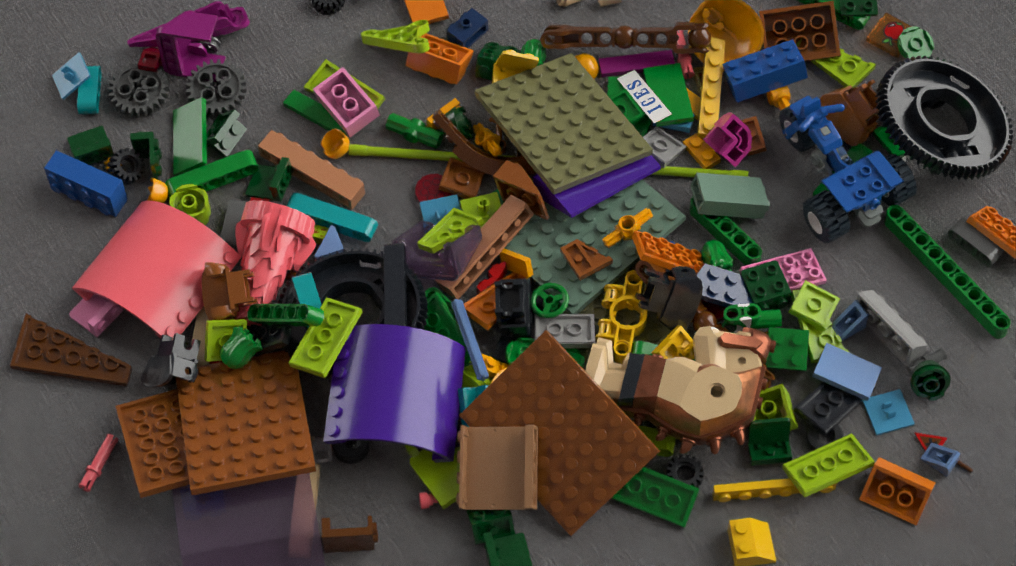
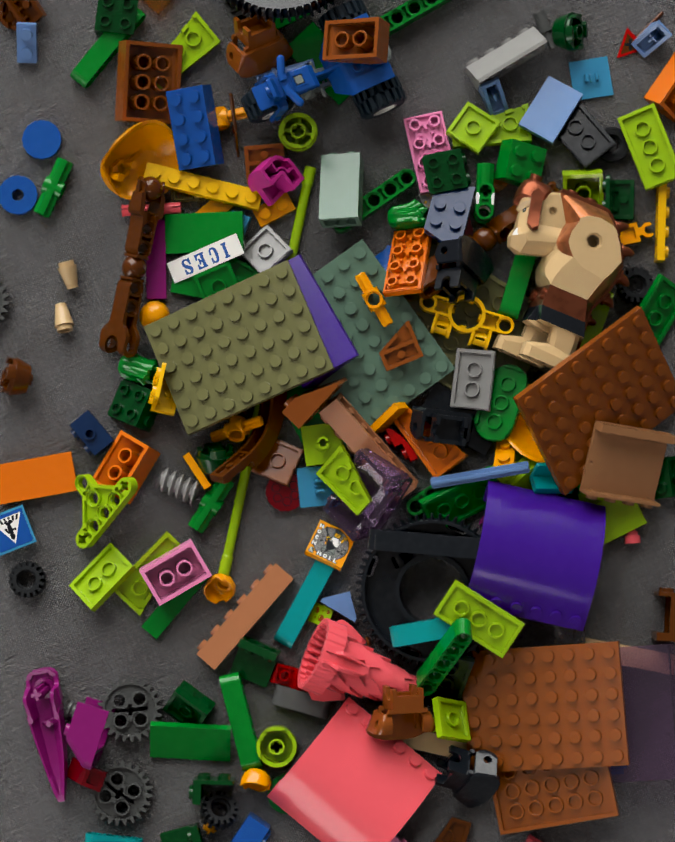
camera: 80 degrees left, 25 degrees up
(239, 348) = (466, 706): green piece -> none
(335, 50) = (102, 577): none -> lime plate
(384, 227) = (329, 545): none -> tile
(427, 100) = (177, 485): none -> light grey piece
(552, 309) = (453, 395): green piece -> none
(676, 344) = (513, 272): yellow slope -> none
(737, 464) = (633, 233): none -> light orange plate
(767, 109) = (234, 126): none -> reddish brown piece
(778, 156) = (298, 131): none -> lime cone
(872, 171) = (356, 40): none -> dark orange slope

